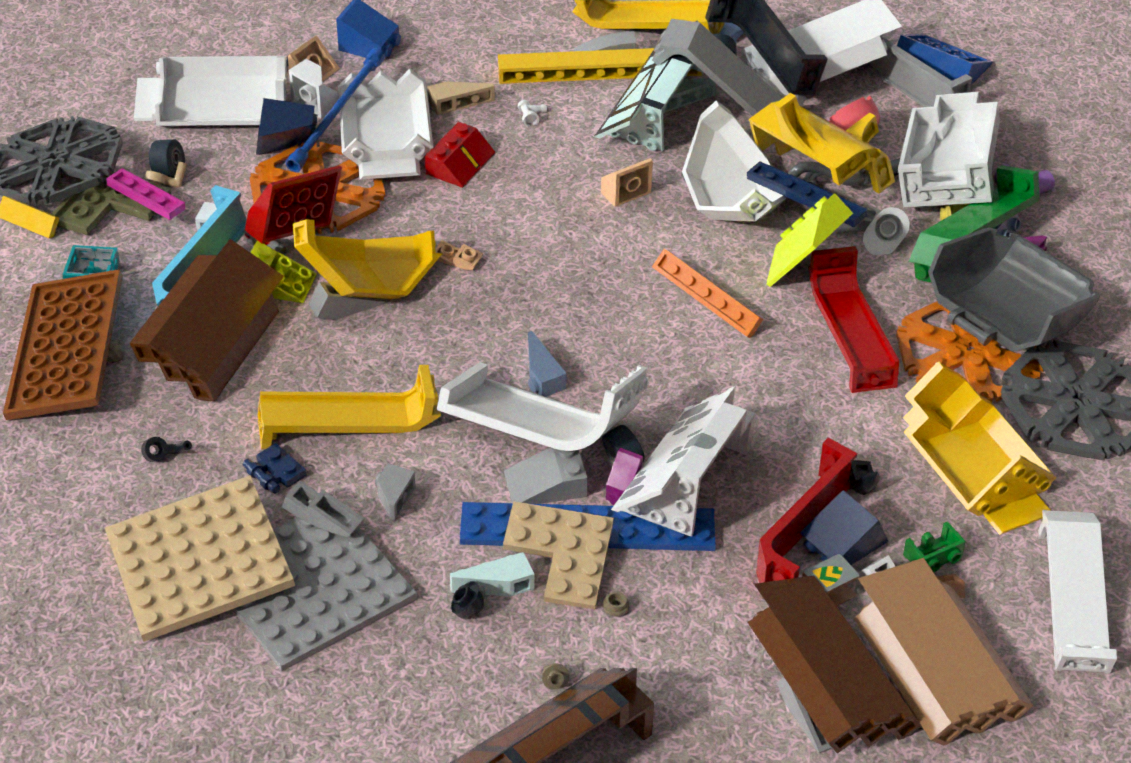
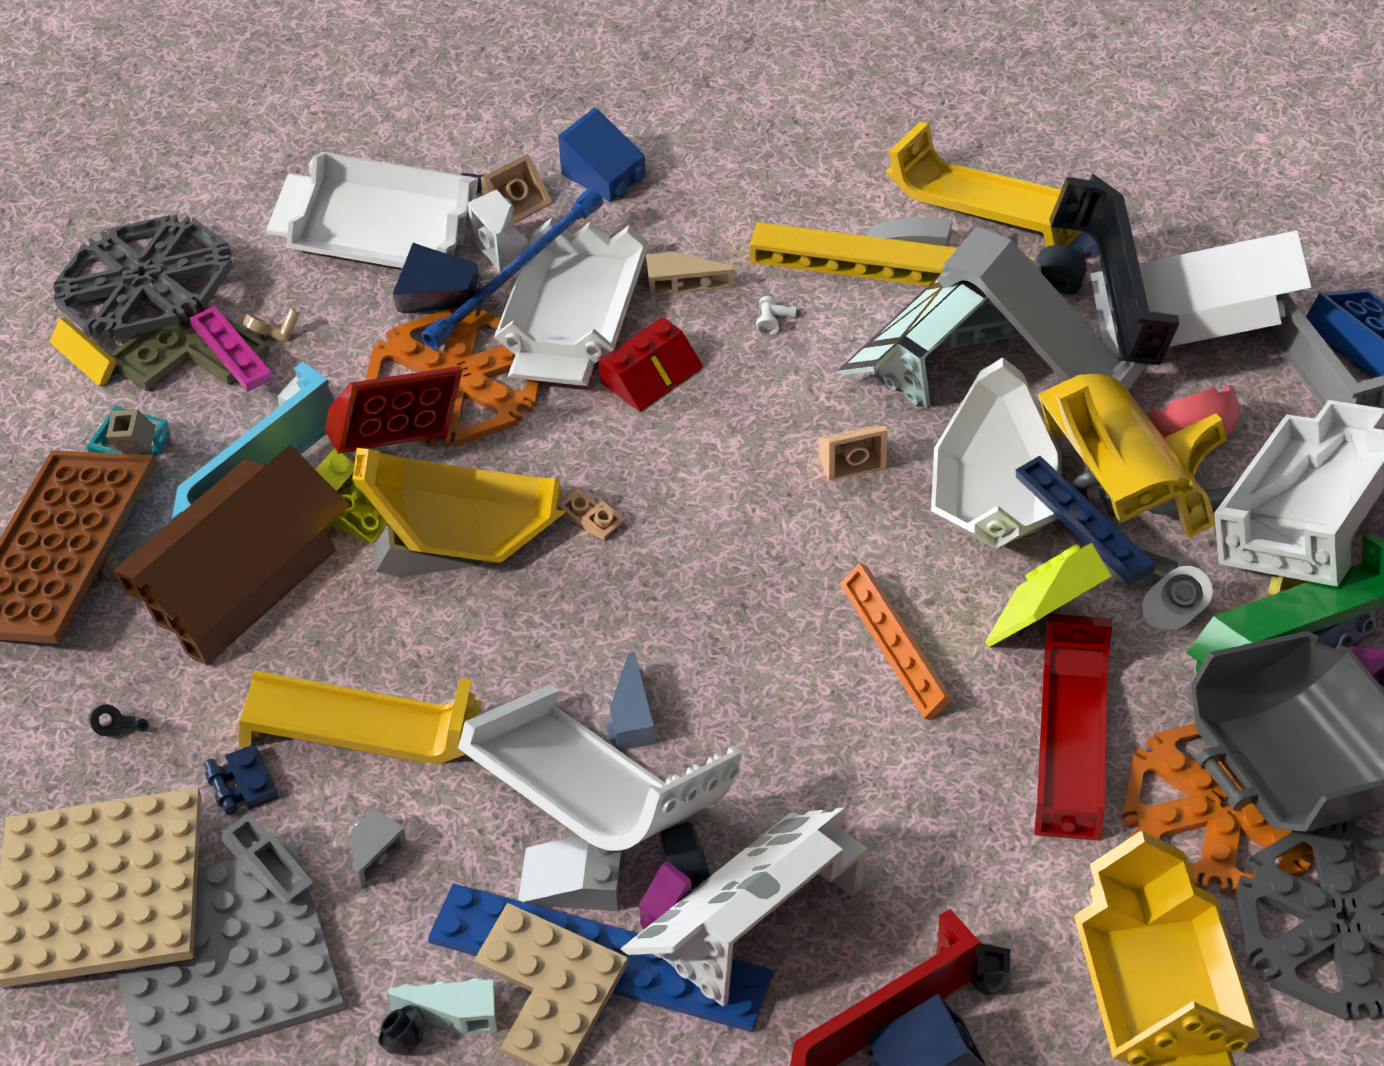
camera: 20 degrees right, 5 degrees up
(98, 255) = (130, 431): none -> dark tan brick
(165, 156) = (275, 297): black wheel -> none

